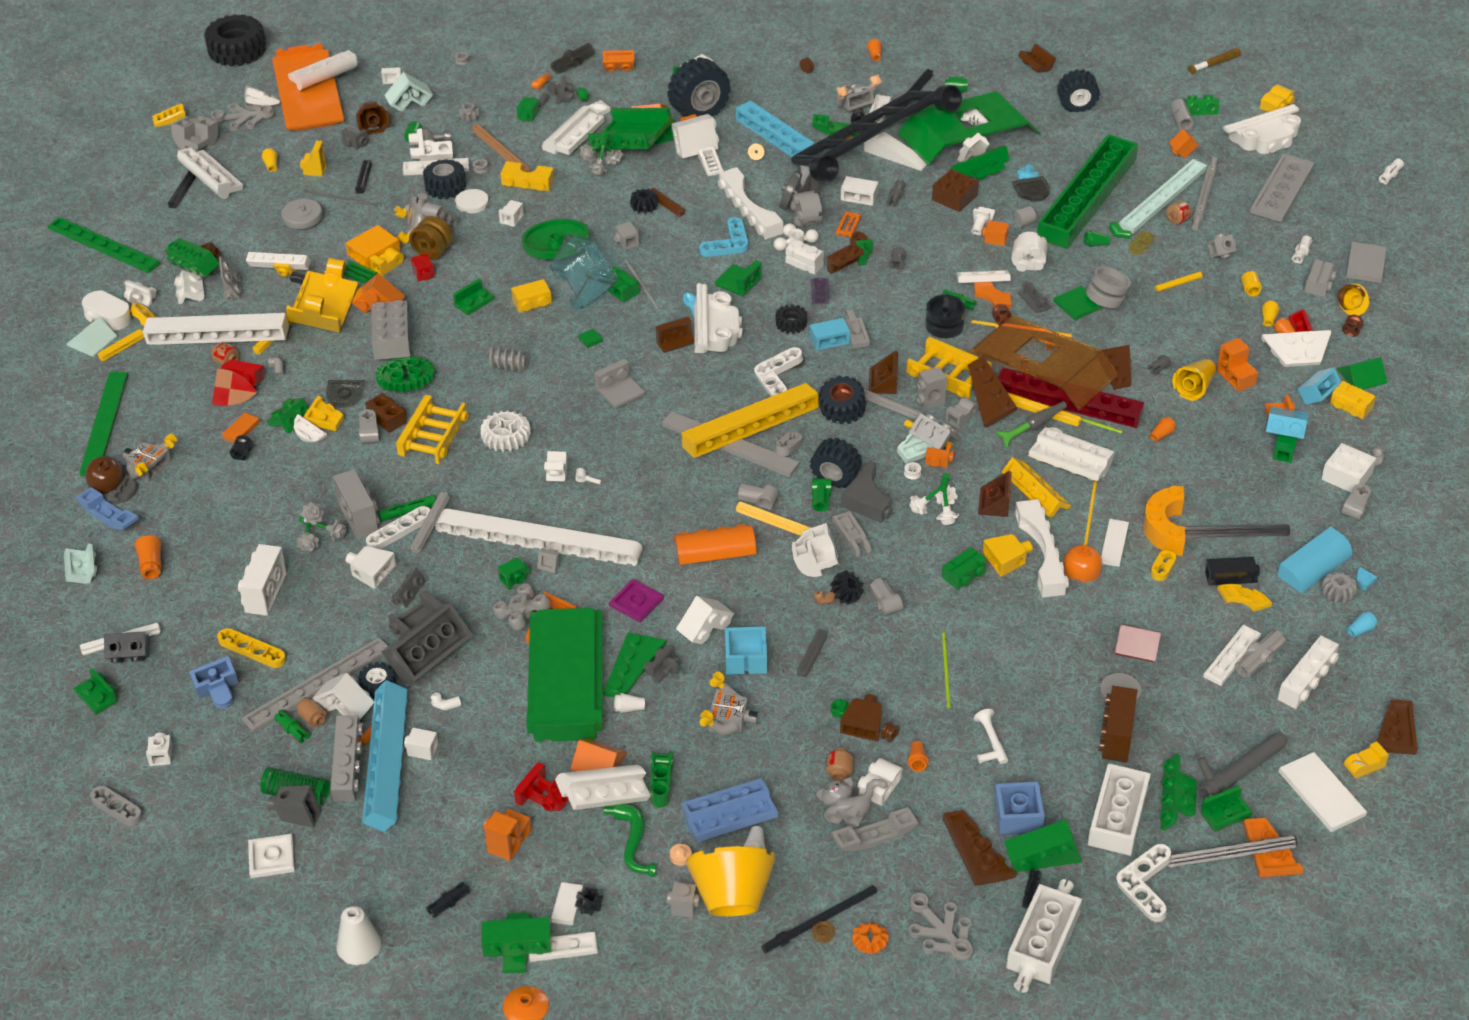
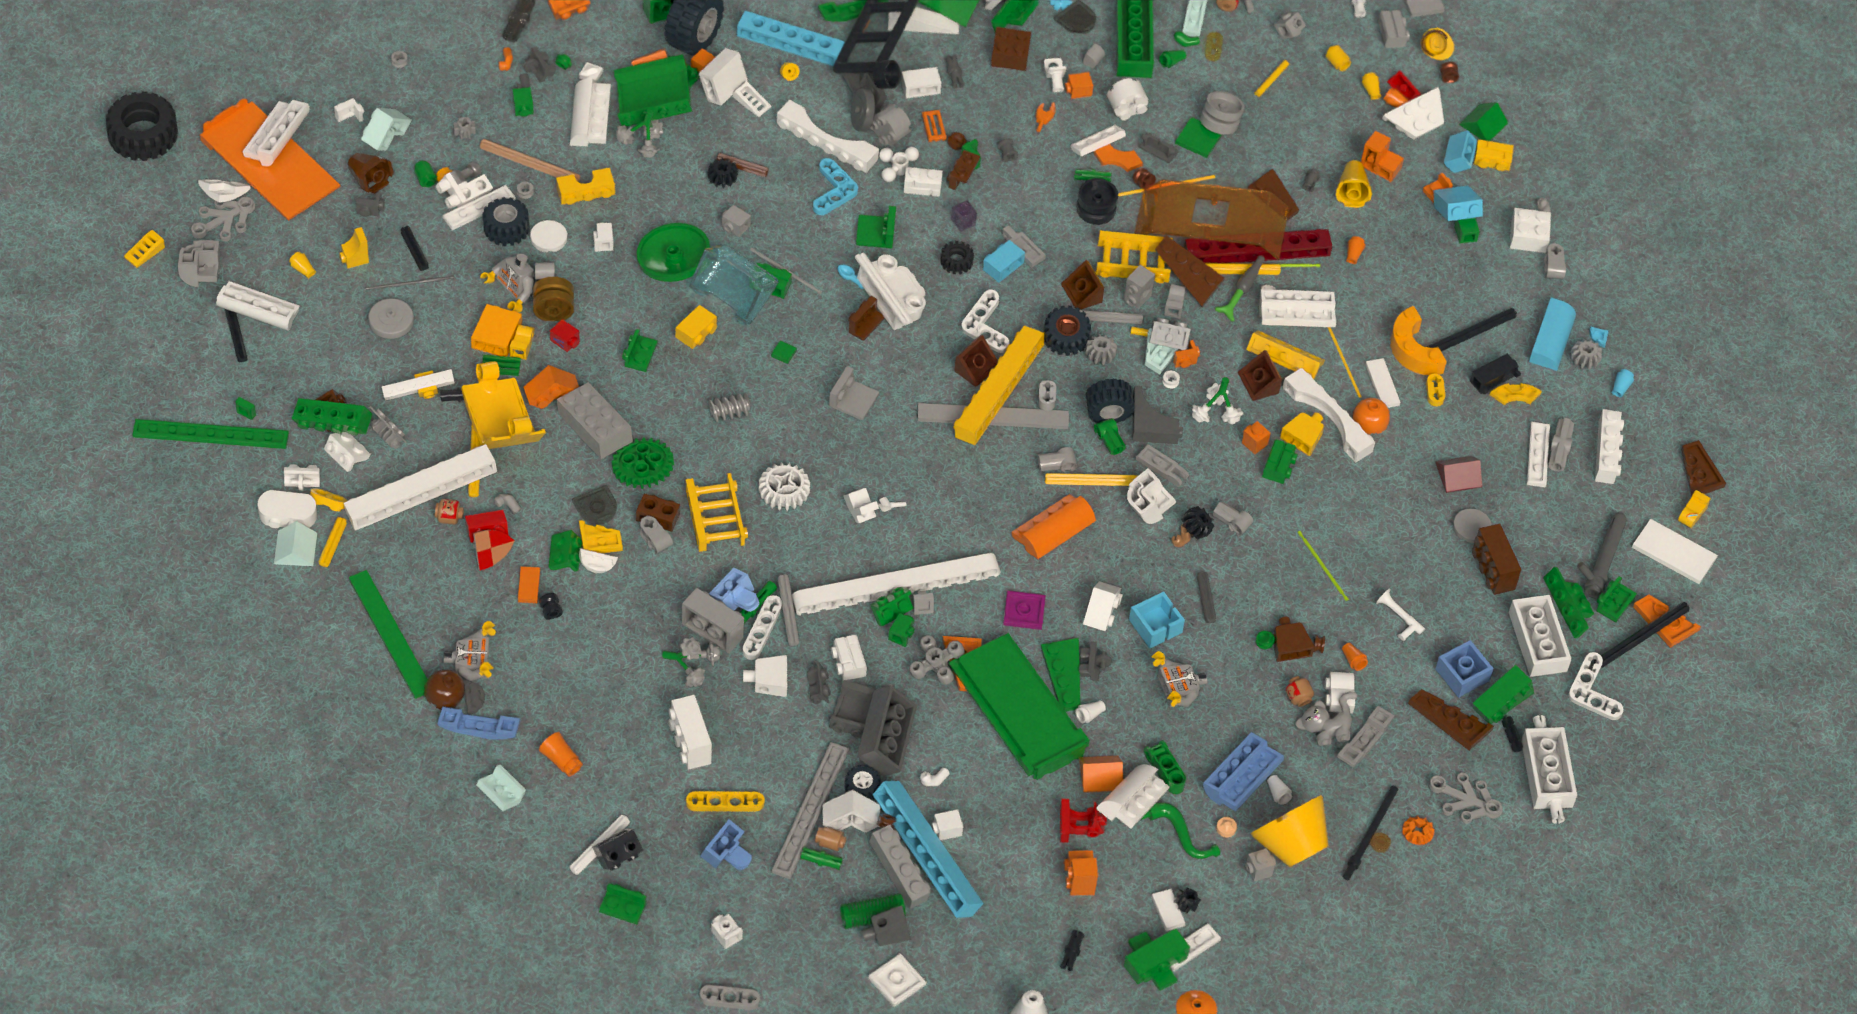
camera: 35 degrees left, 10 degrees up
(140, 235) = (245, 408): none -> green tile
(365, 715) = (885, 820): none -> reddish brown bush
(392, 490) = (736, 591): none -> light blue brick
(449, 577) = (849, 657): none -> white brick
(524, 549) = (888, 607): none -> green bracket
(743, 392) = (975, 361): none -> copper slope
(864, 425) = (1101, 349): none -> light grey gear
(949, 245) = (1044, 117): none -> orange hand
(955, 540) = (1255, 437): none -> orange brick

